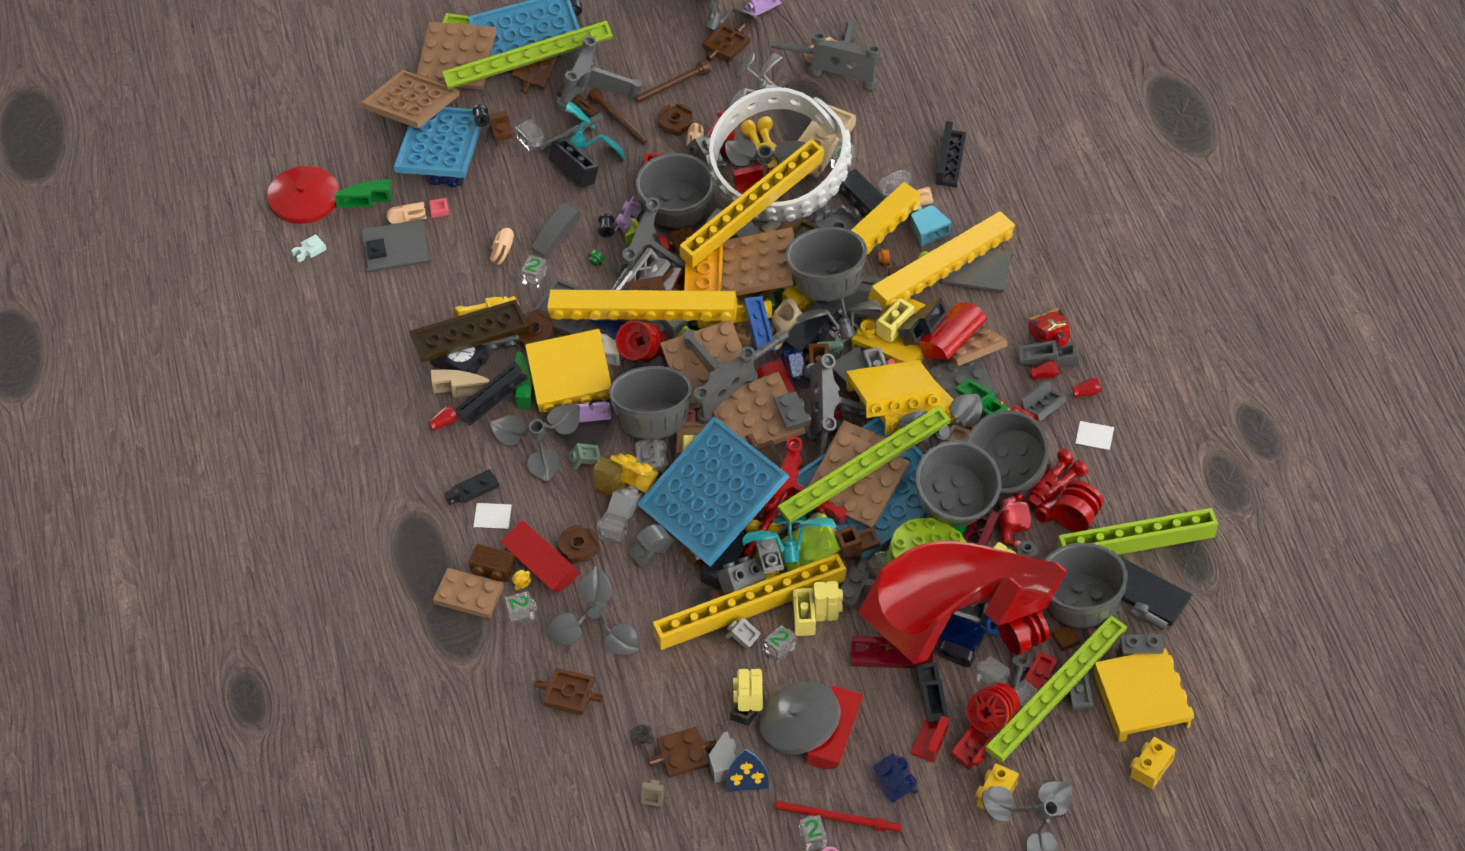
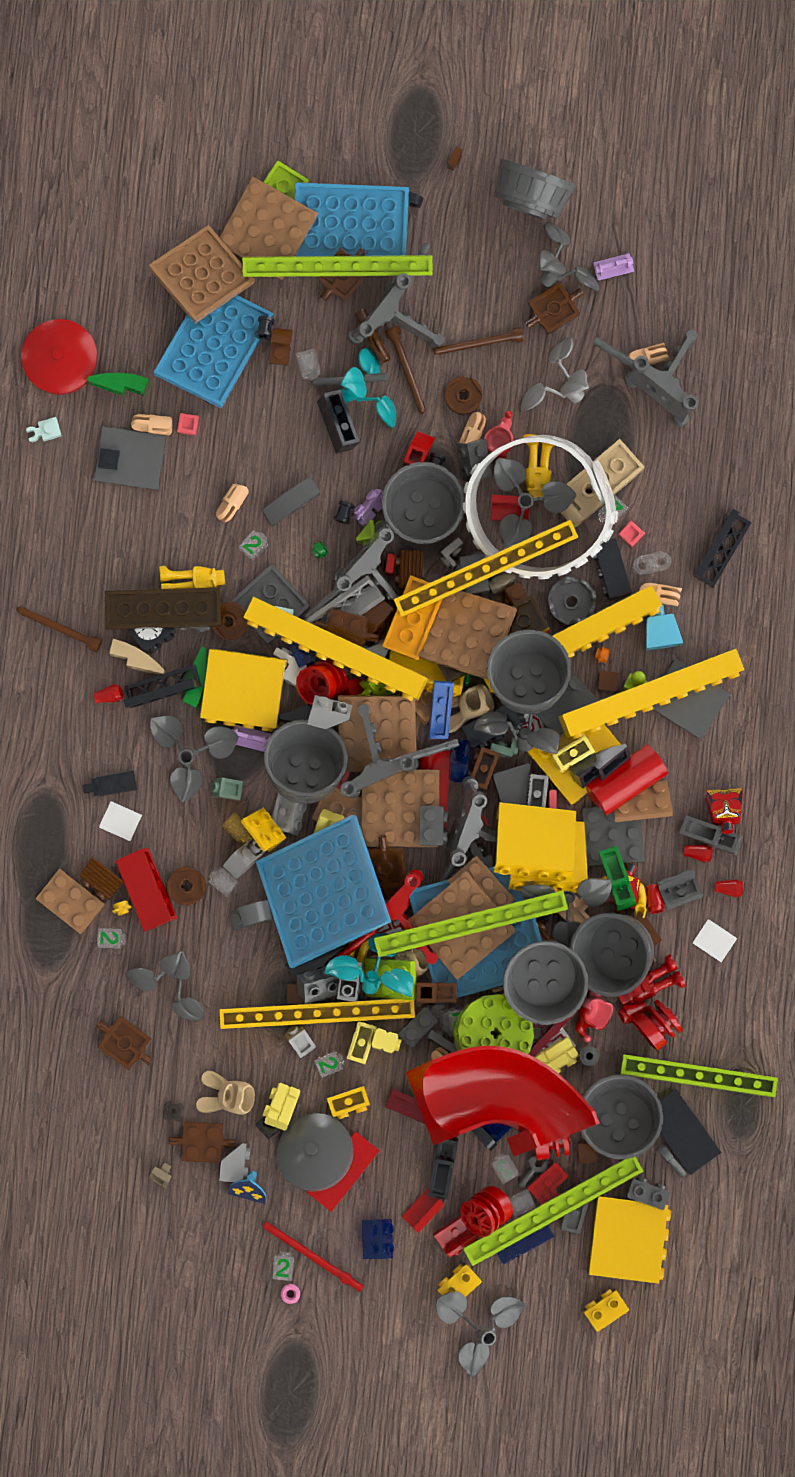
camera: 20 degrees right, 30 degrees up
(412, 385) = (94, 643): none -> reddish brown piece
(655, 354) = (328, 712): none -> light grey slope
(697, 698) = (232, 1095): none -> tan piece
(814, 663) = (348, 1101): none -> yellow brick
(868, 169) = (631, 534): none -> coral tile
(1042, 734) = (525, 1244): none -> clear blue tile

